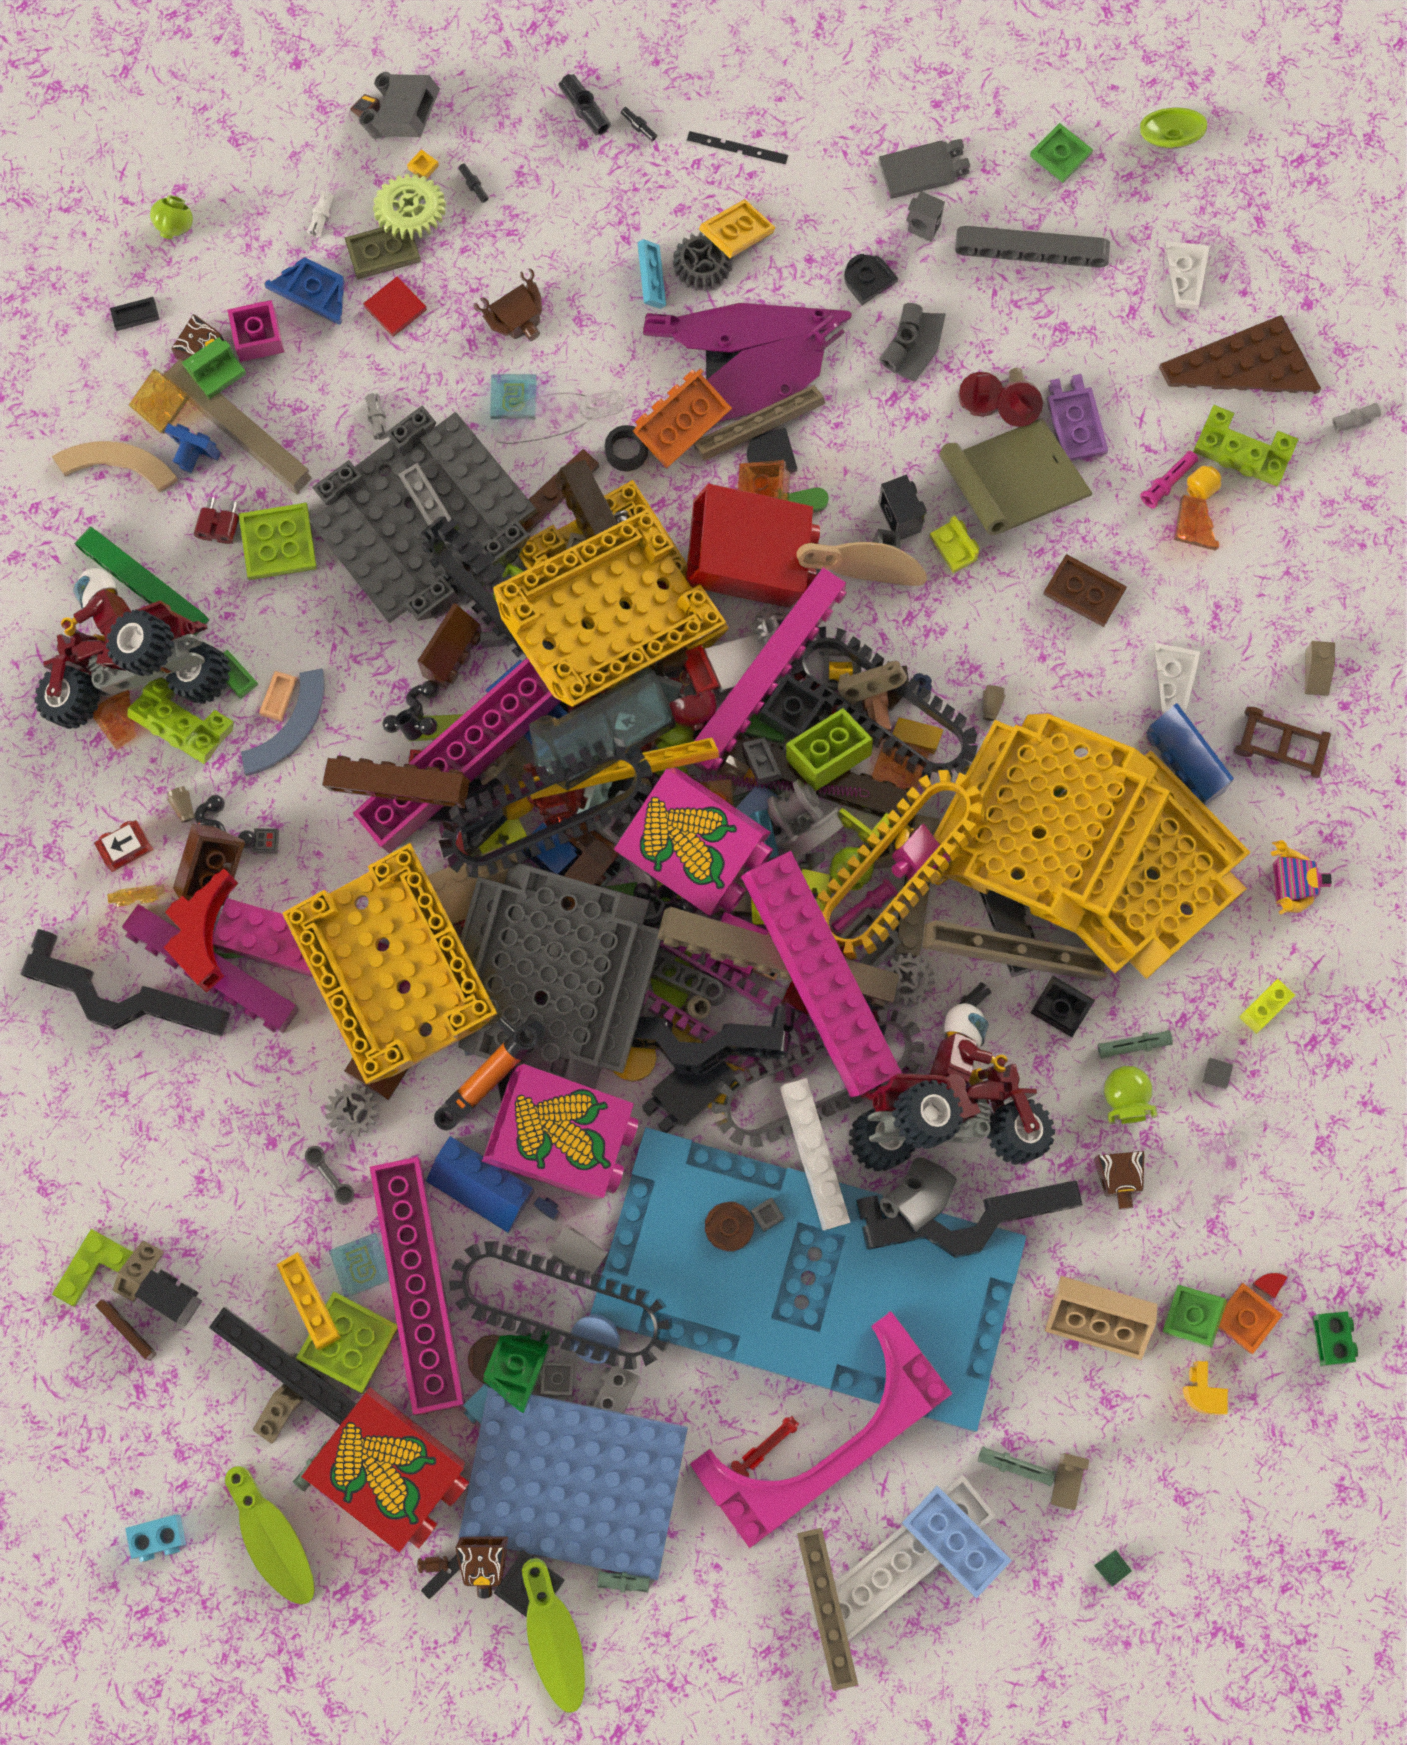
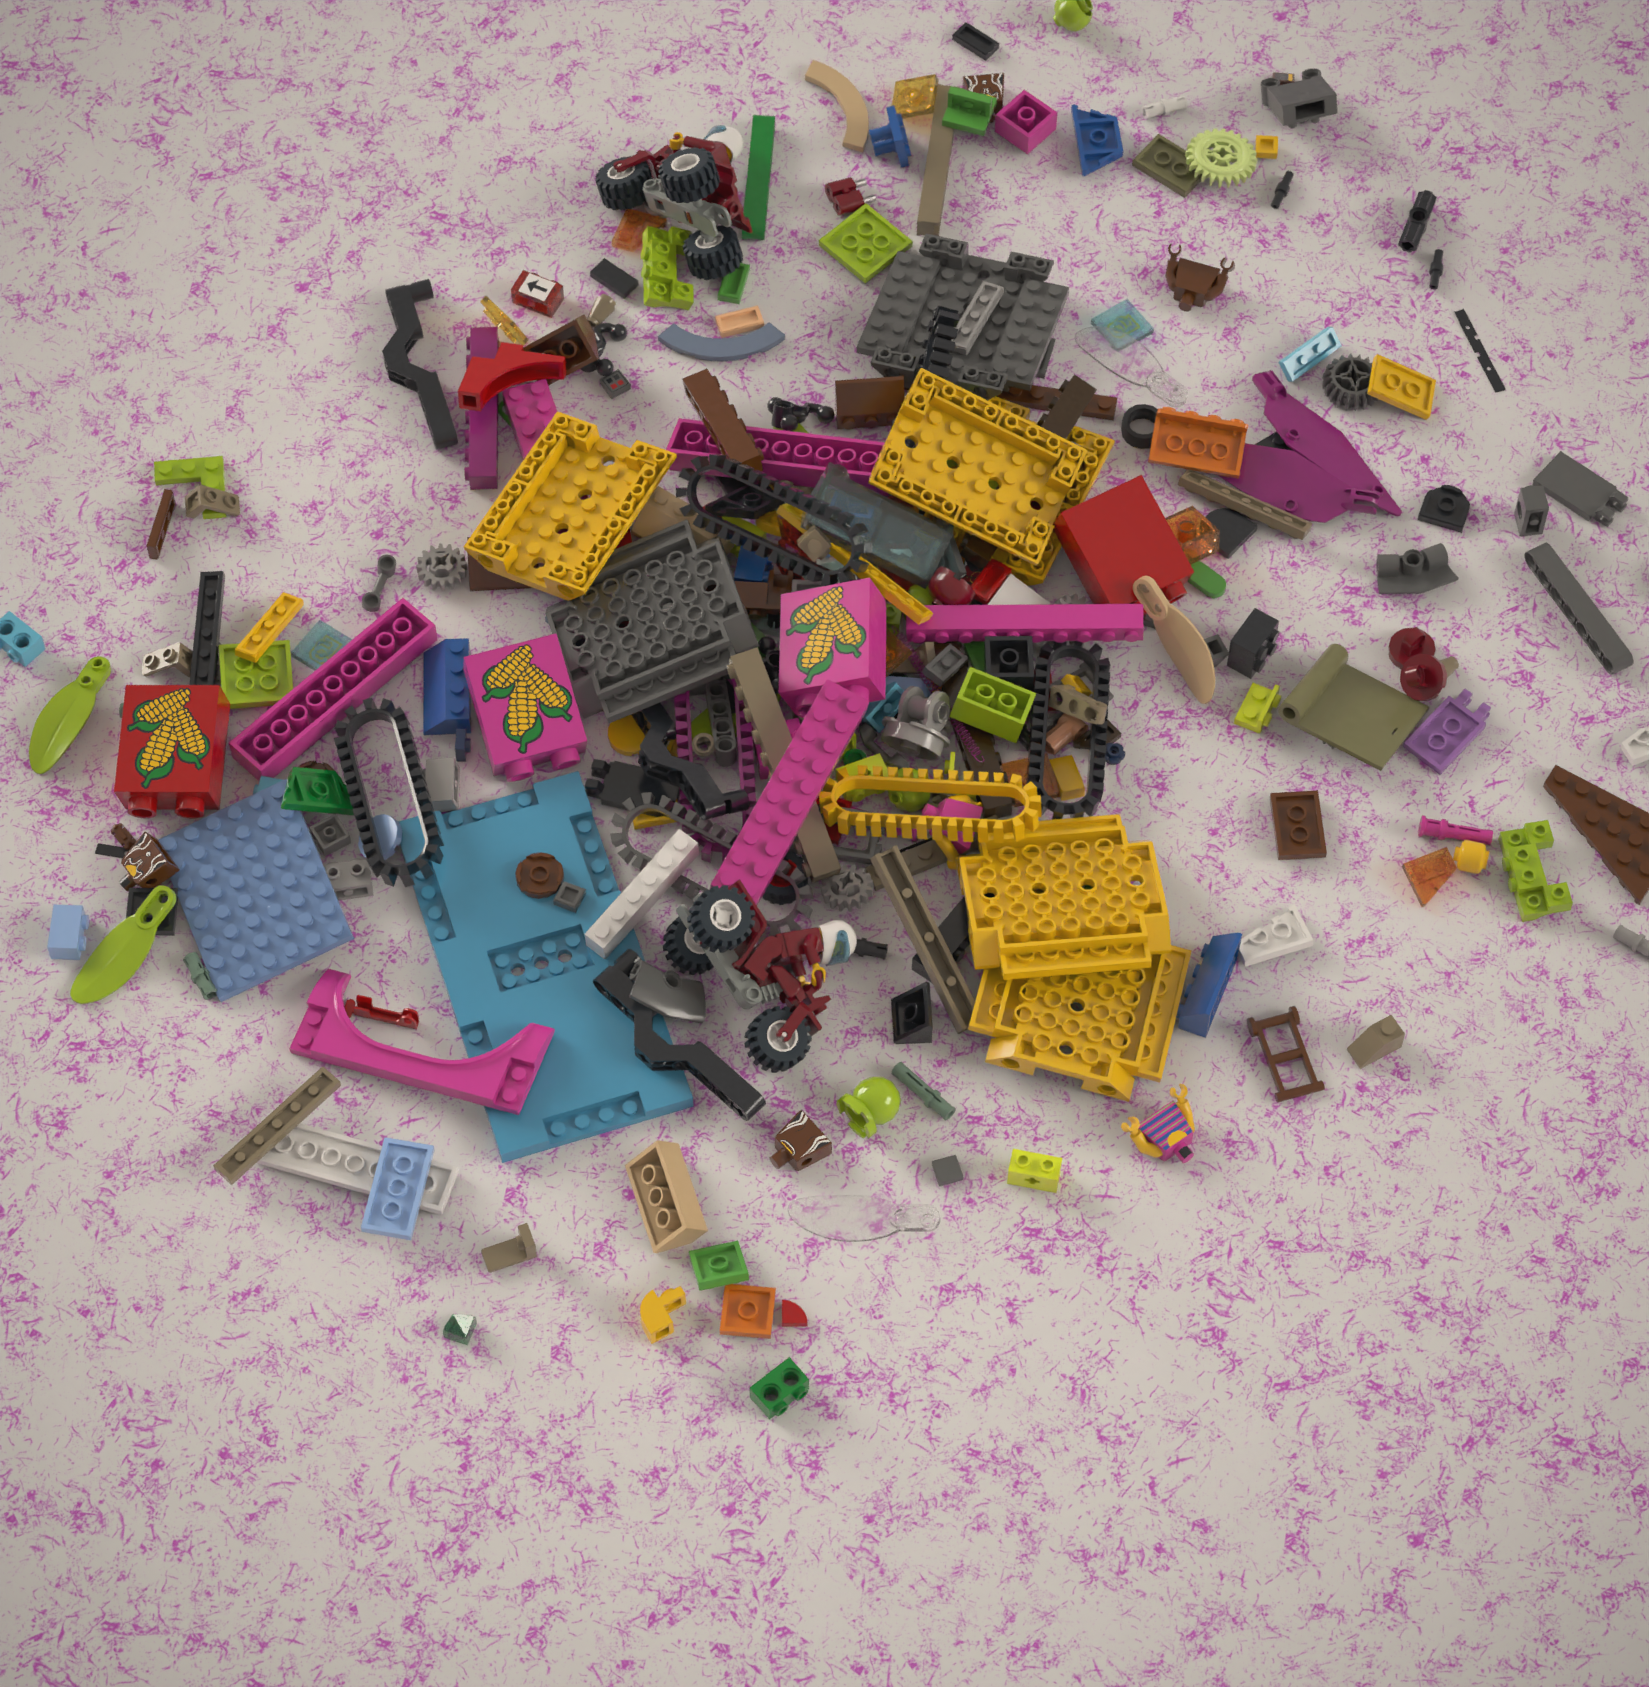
camera: 55 degrees right, 15 degrees down
(154, 770) = (614, 278): none -> black tile
(169, 1298) = (205, 532): black brick -> none
(376, 416) = (1026, 243): light grey pin -> none
(395, 306) = (1129, 202): red tile -> none
(490, 1072) = (506, 632): piece -> none
(500, 1675) = (67, 932): none -> light blue brick
(592, 789) = (814, 543): none -> dark tan brick
(992, 701) = (1140, 813): dark tan cone -> none
(1016, 1466) = (491, 1196): sand green pin -> none

